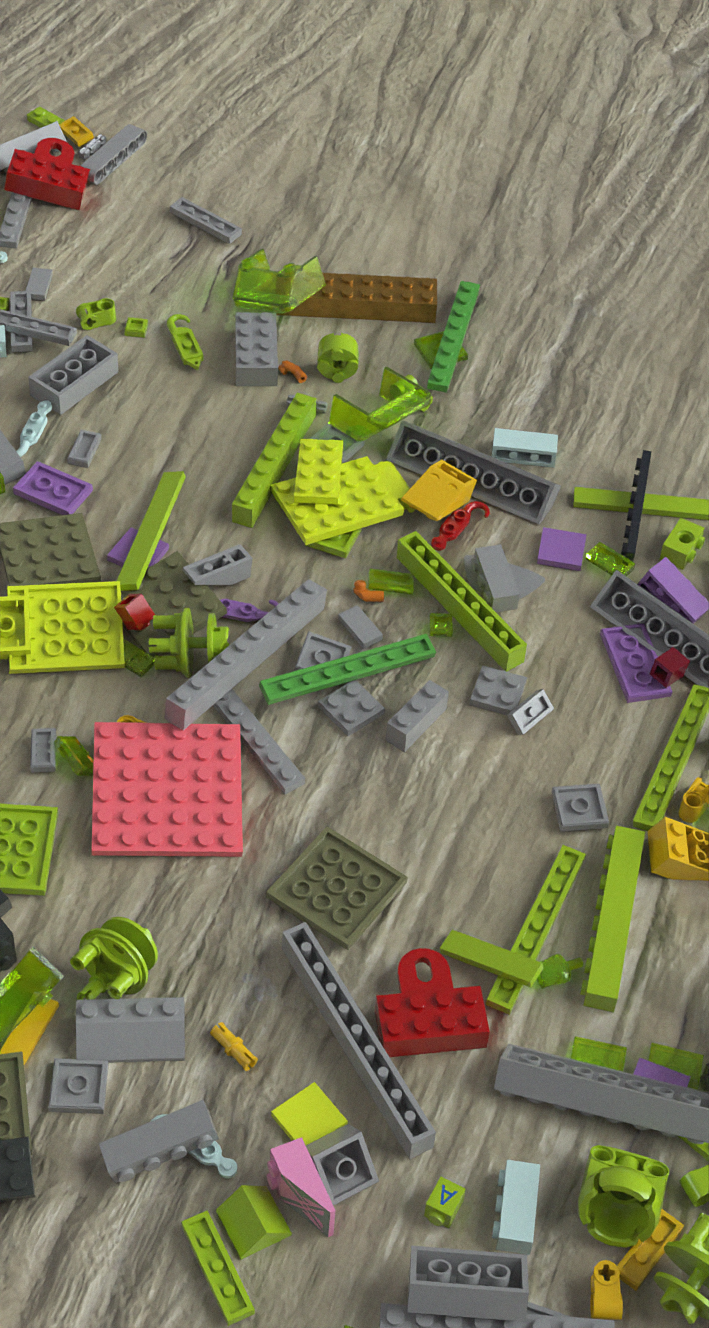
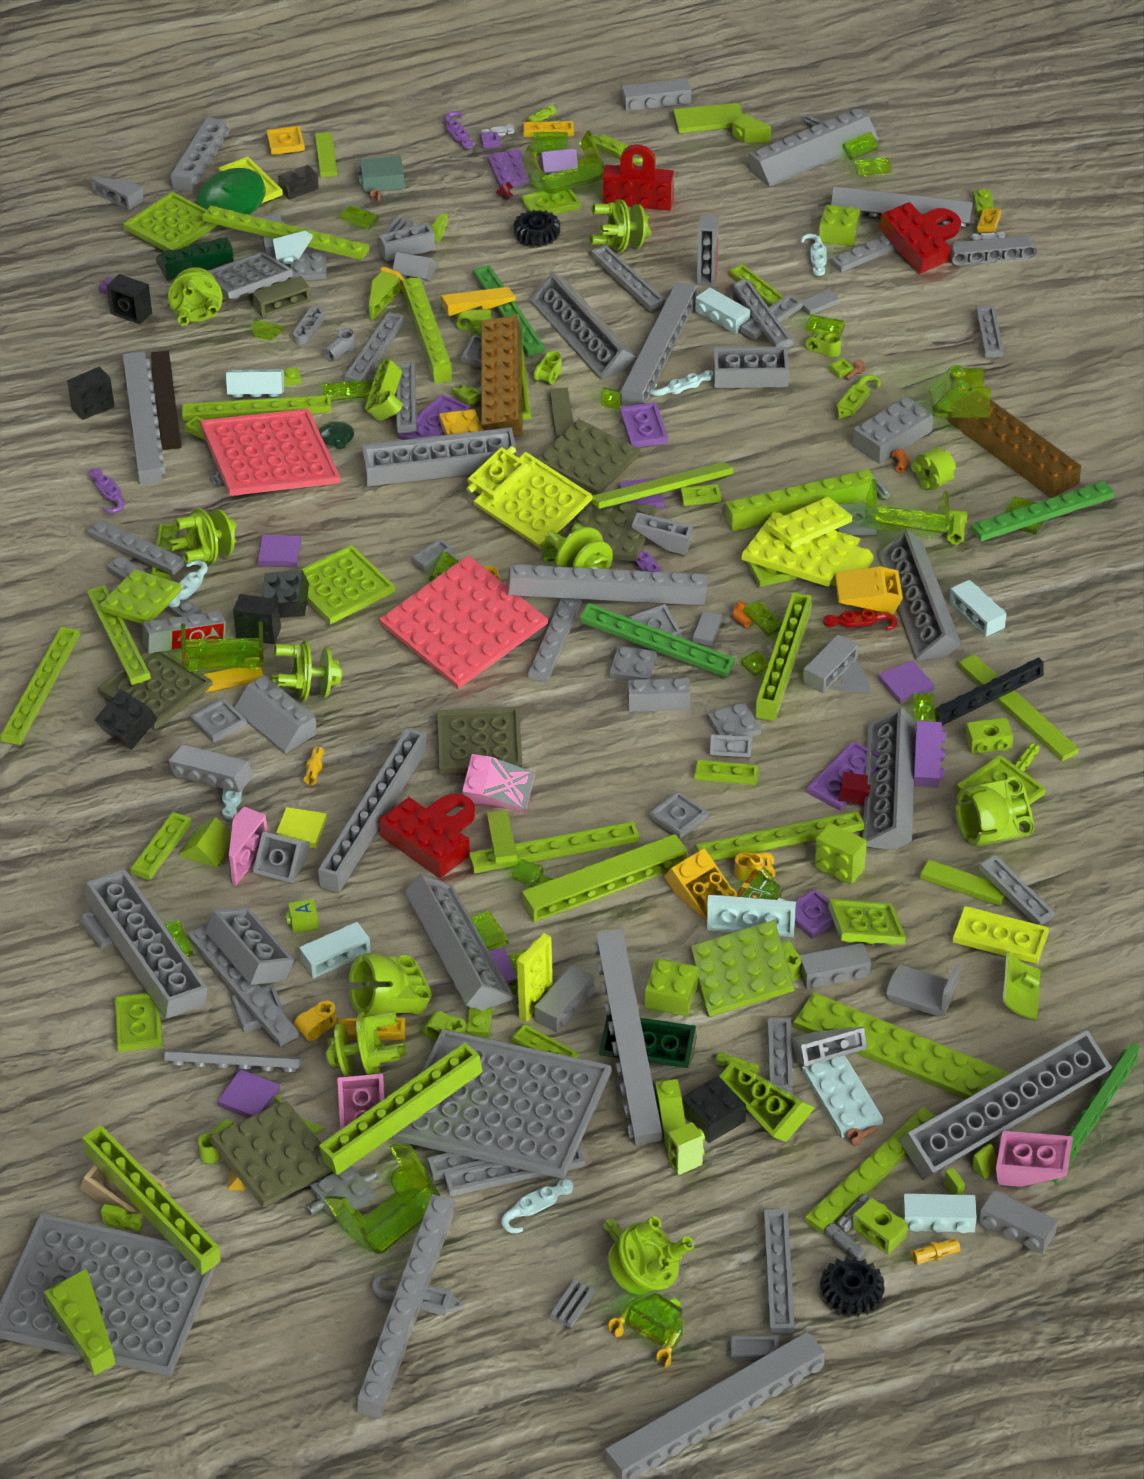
camera: 55 degrees right, 5 degrees down
(72, 299) = (827, 324): none -> clear neon green plate
(84, 448) = (699, 416): light grey tile -> none
(135, 612) = (574, 514): red brick -> none
(150, 315) = (858, 367): none -> nougat hand
(188, 515) = (700, 495): none -> lime plate
(415, 914) = (498, 783): none -> bright pink slope
(554, 738) = (726, 772): none -> lime tile

